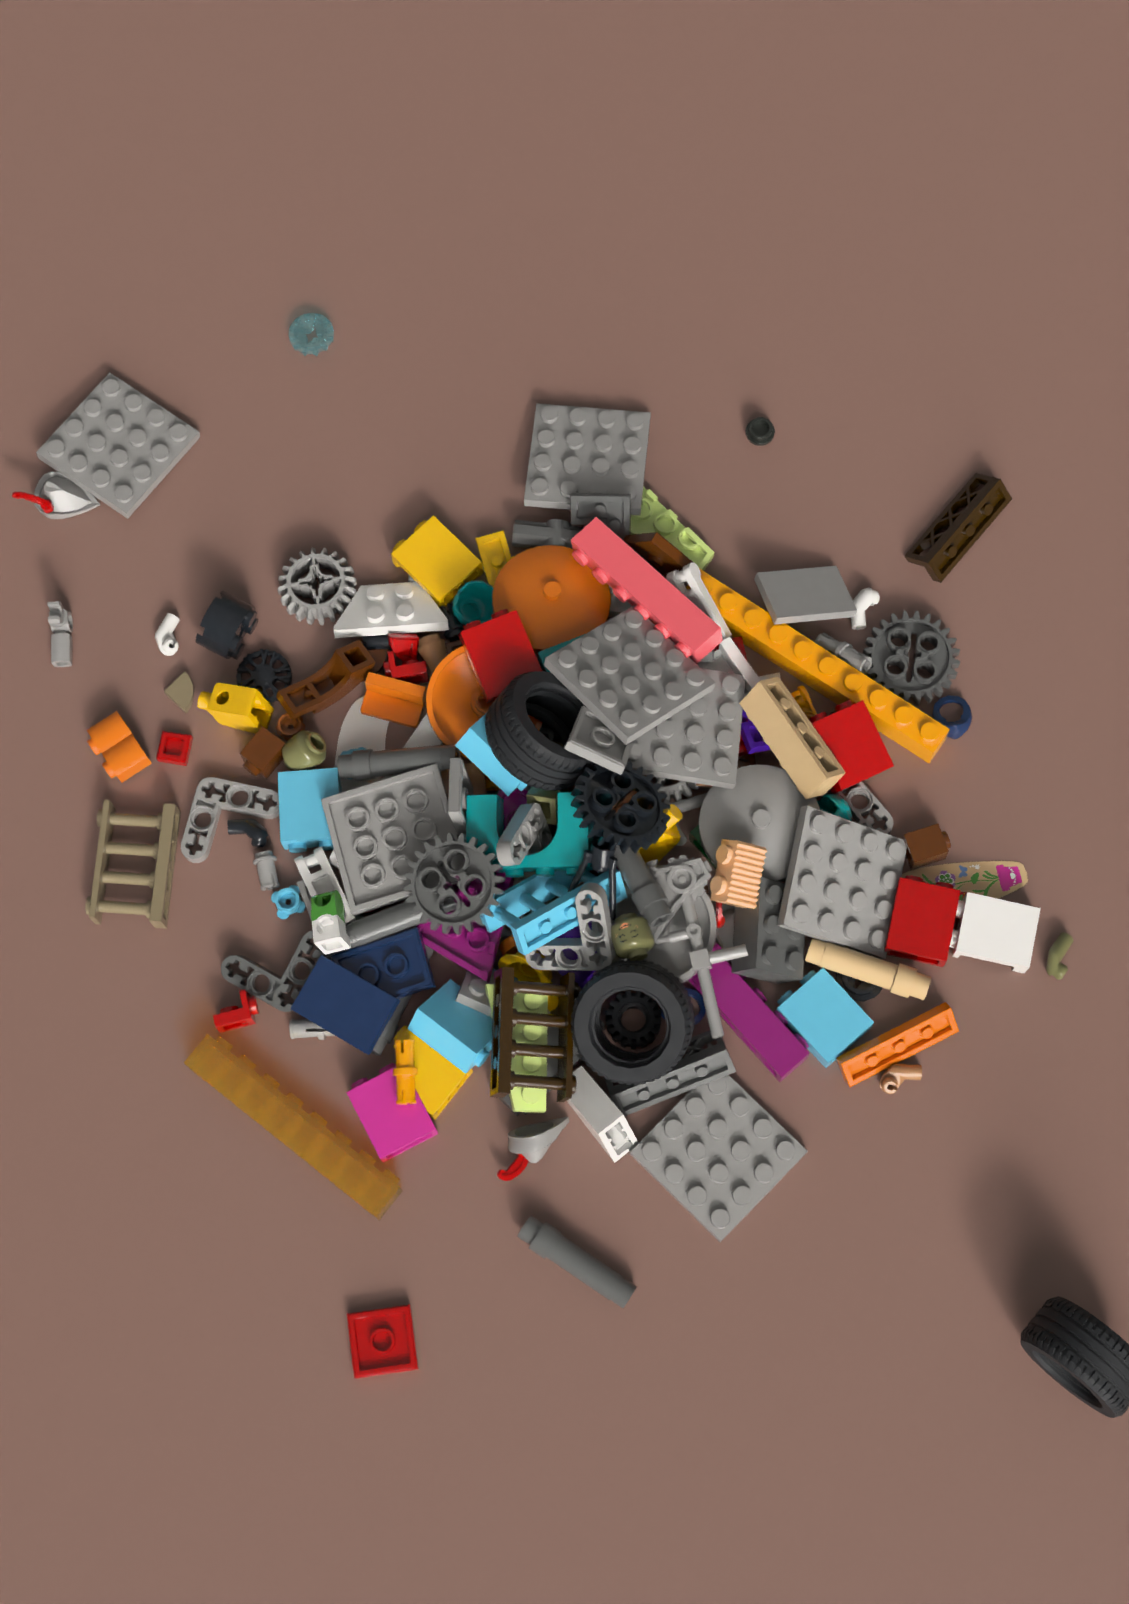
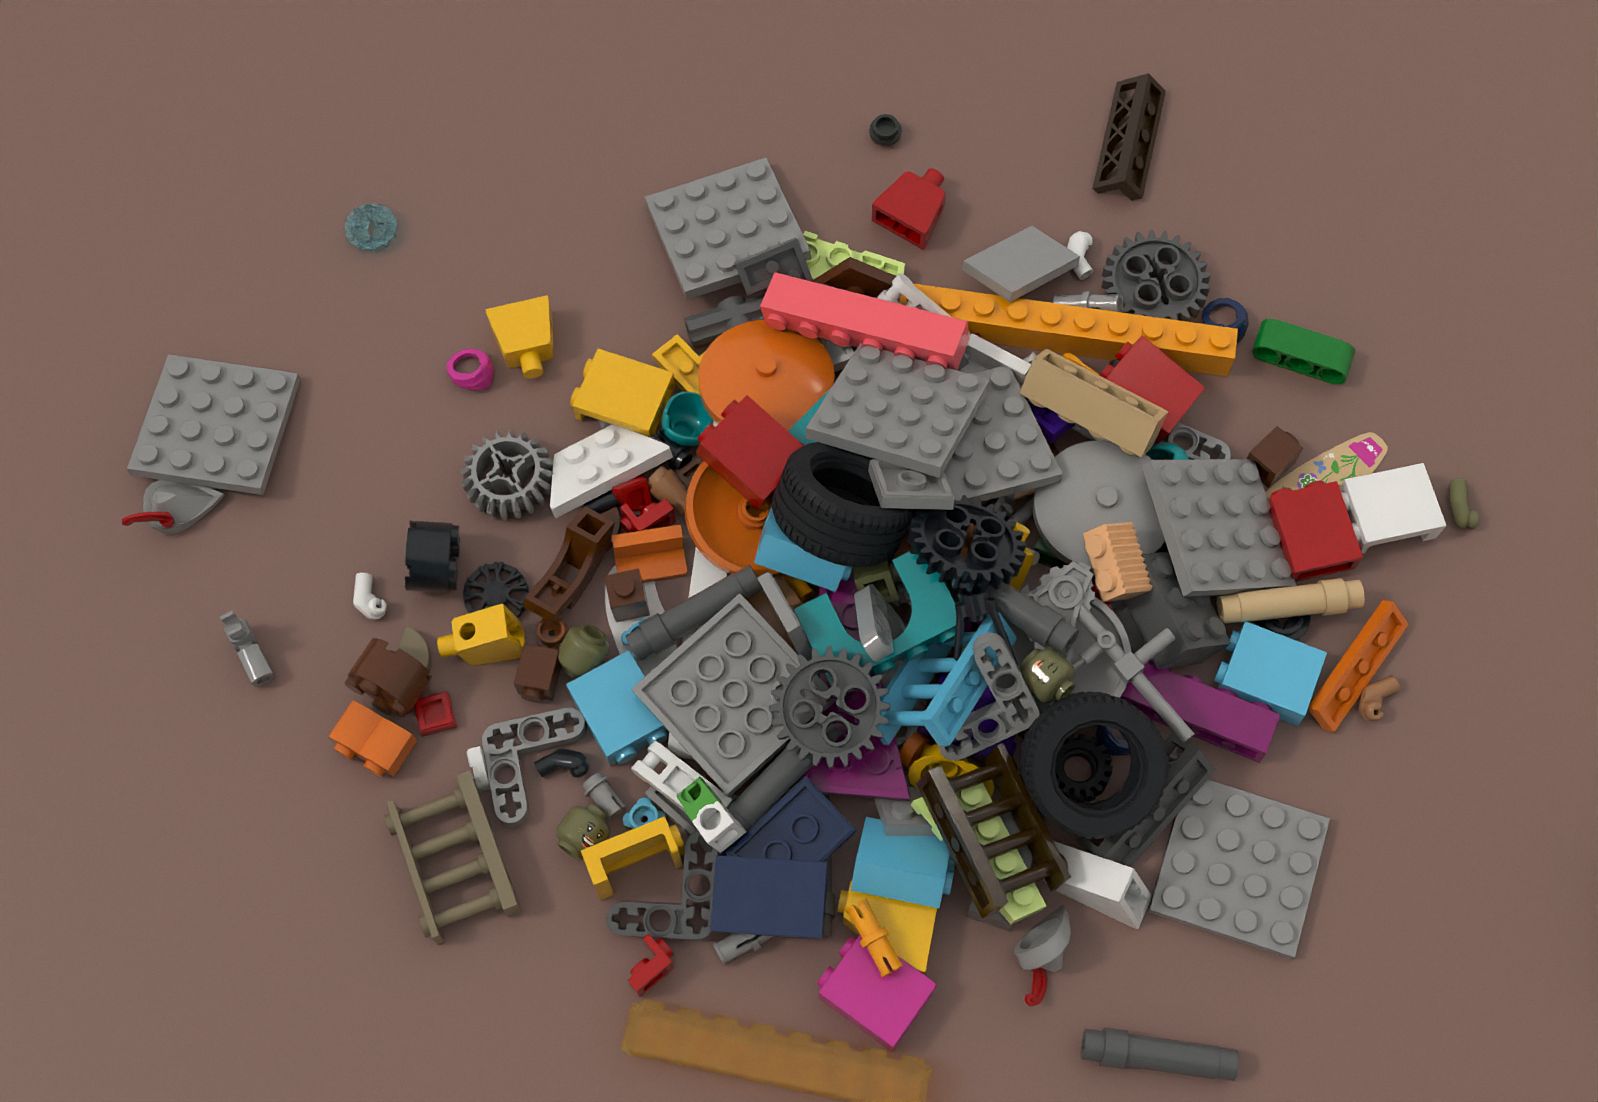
camera: 30 degrees left, 5 degrees down
(151, 705) = (389, 678): none -> reddish brown brick
(186, 798) = (477, 761): none -> white tile
(236, 890) = (581, 829): none -> olive head
(260, 919) = (630, 849): none -> yellow panel
(336, 497) = (477, 380): none -> dark pink piece
(359, 723) = (627, 595): none -> reddish brown brick
(386, 477) = (524, 333): none -> yellow torso
(746, 506) = (911, 206): none -> red torso
(1000, 771) = (1303, 351): none -> green beam

